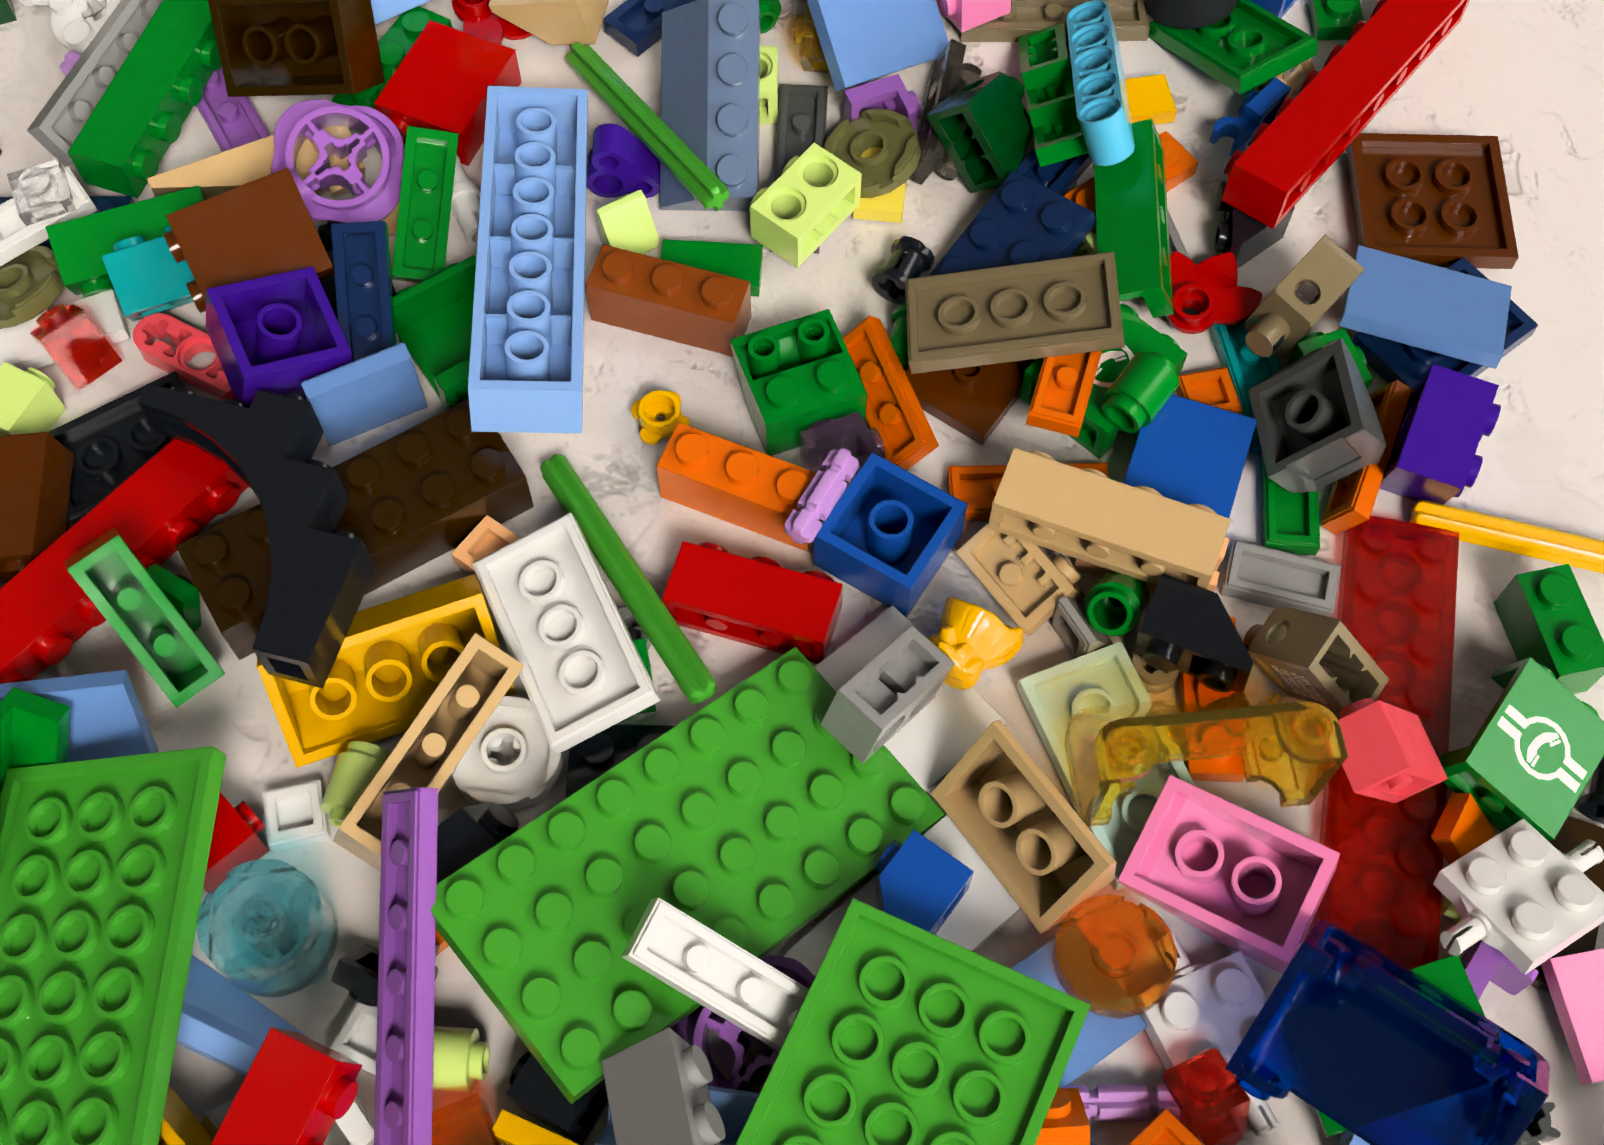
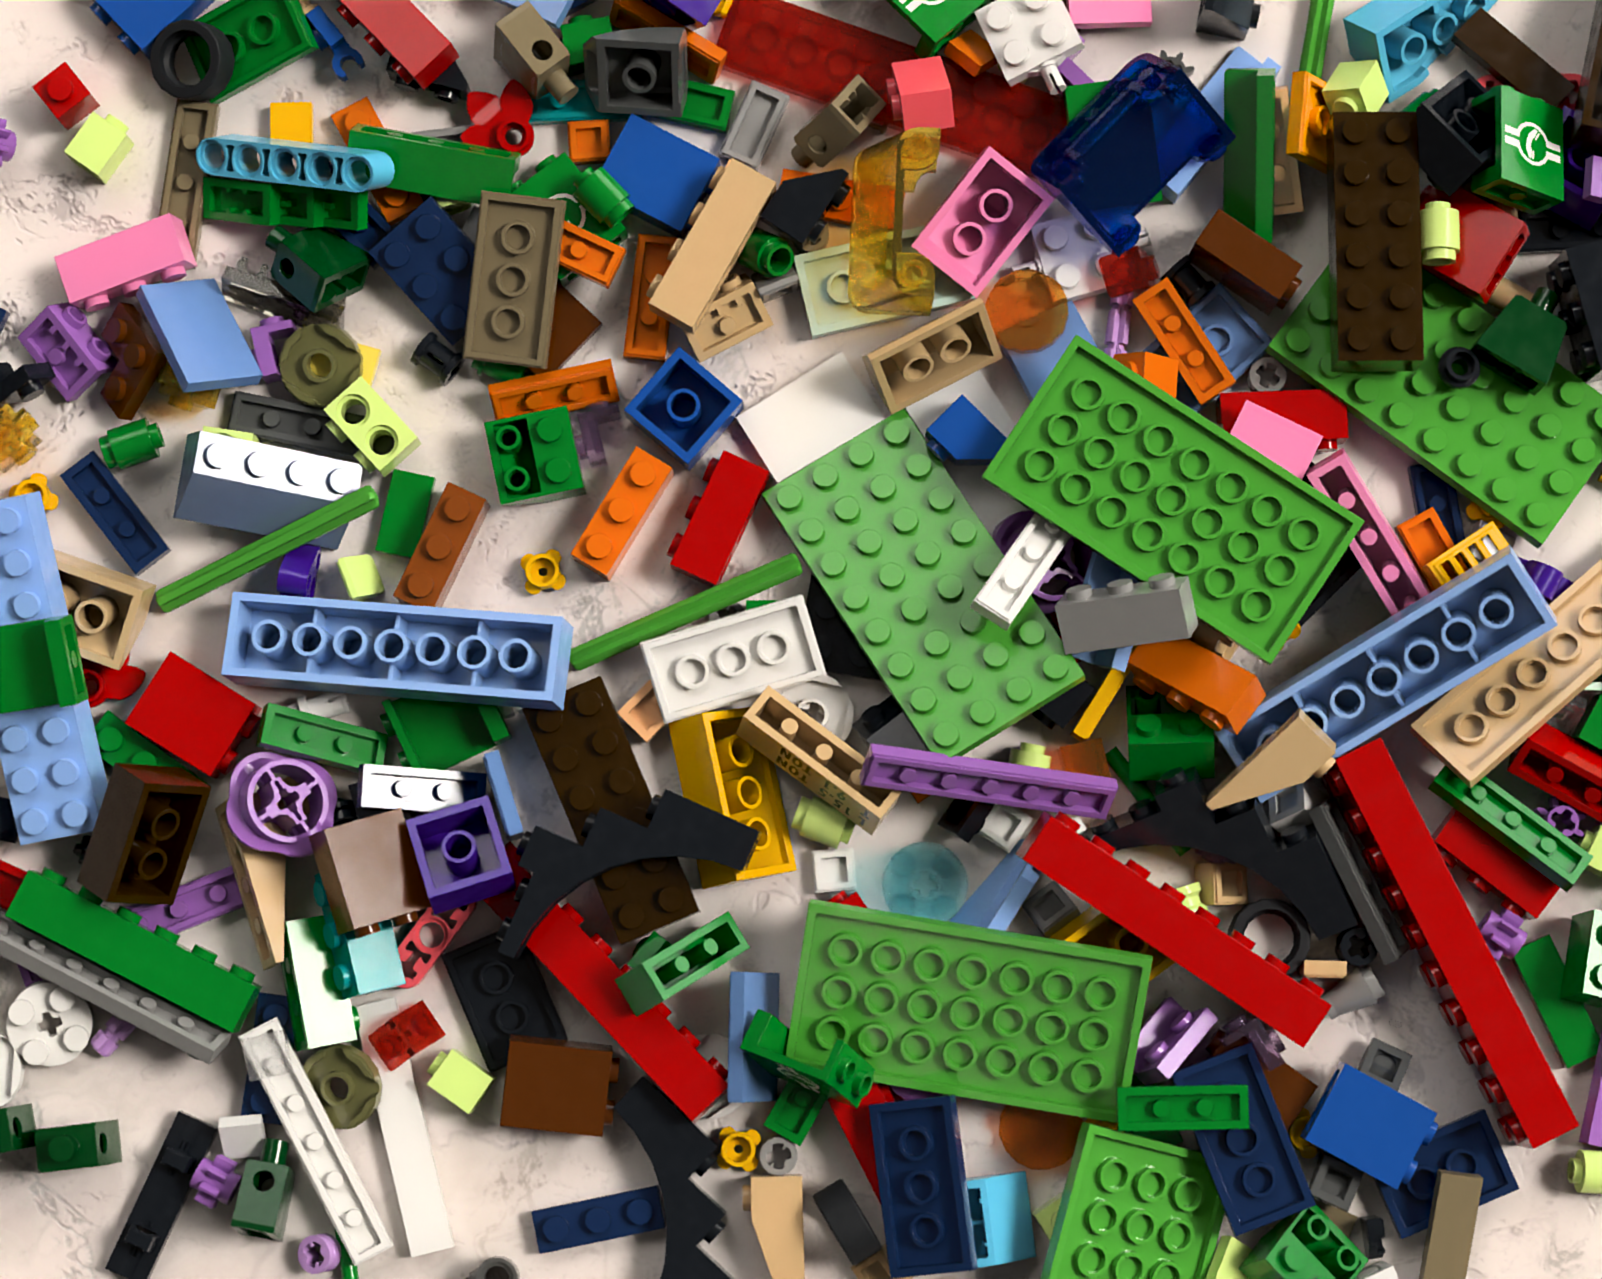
camera: 80 degrees left, 20 degrees up
(821, 496) = (657, 453): lavender axle -> none
(887, 694) = (823, 430): light grey brick -> none
(974, 641) = (781, 365): yellow hair -> none

